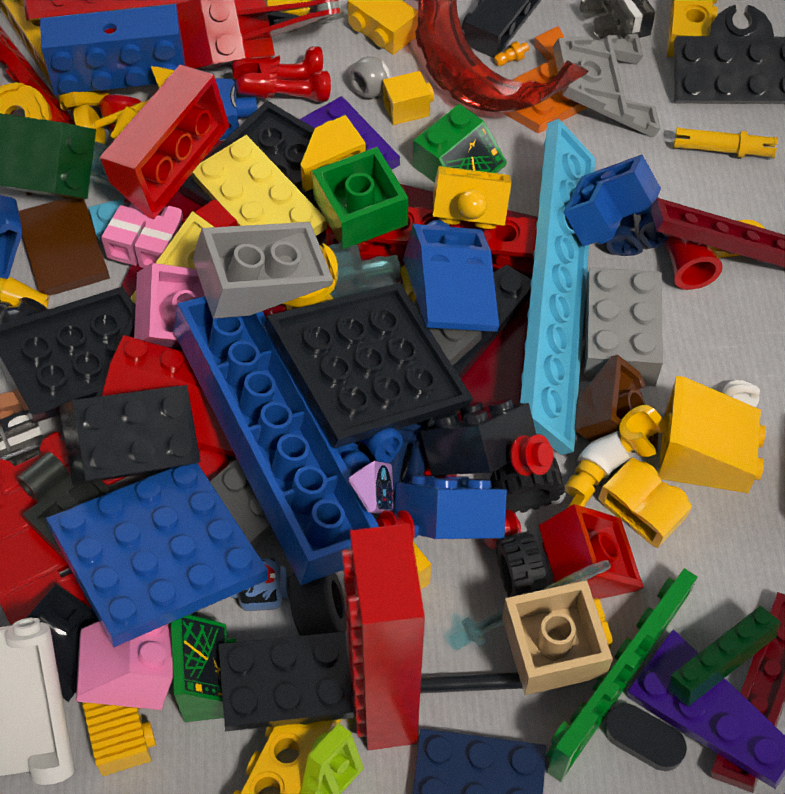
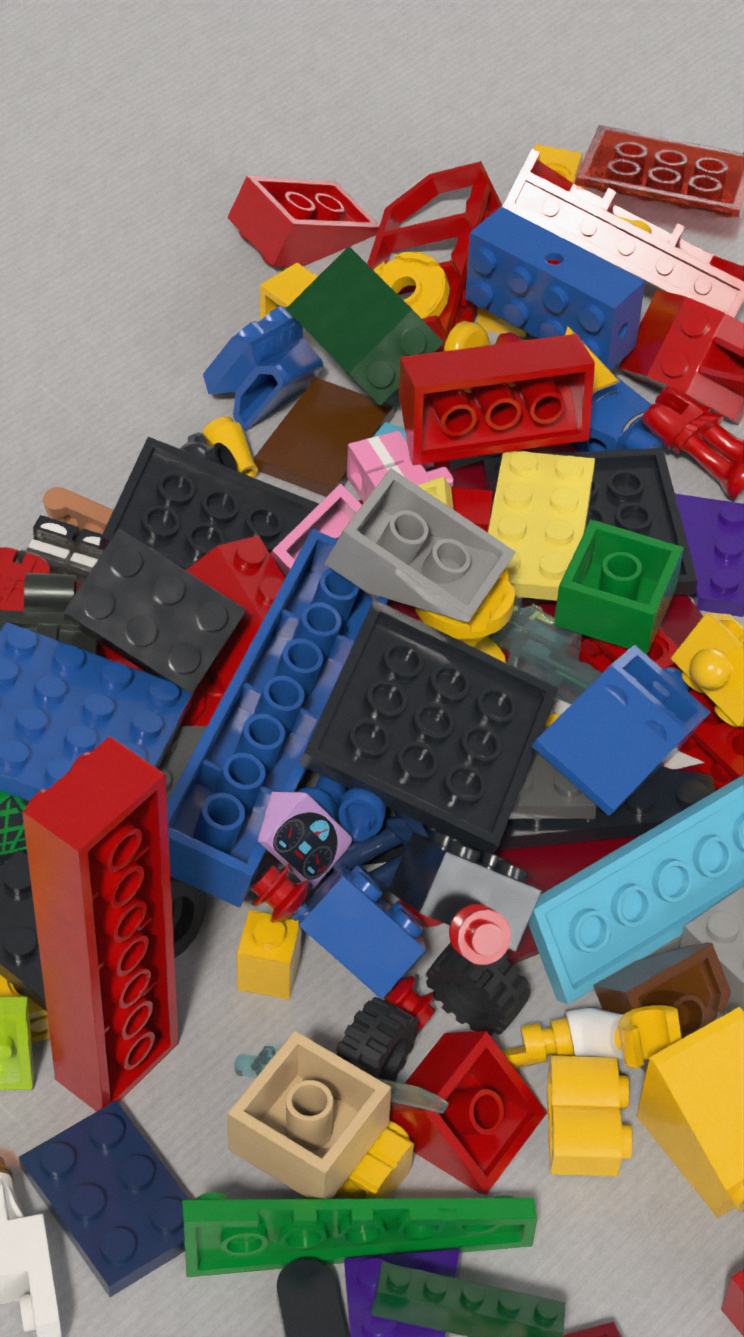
camera: 45 degrees right, 10 degrees down
(73, 99) = (493, 325): yellow tile -> none
(329, 144) = (664, 520): yellow slope -> none
(470, 682) = (191, 1092): black bar -> none

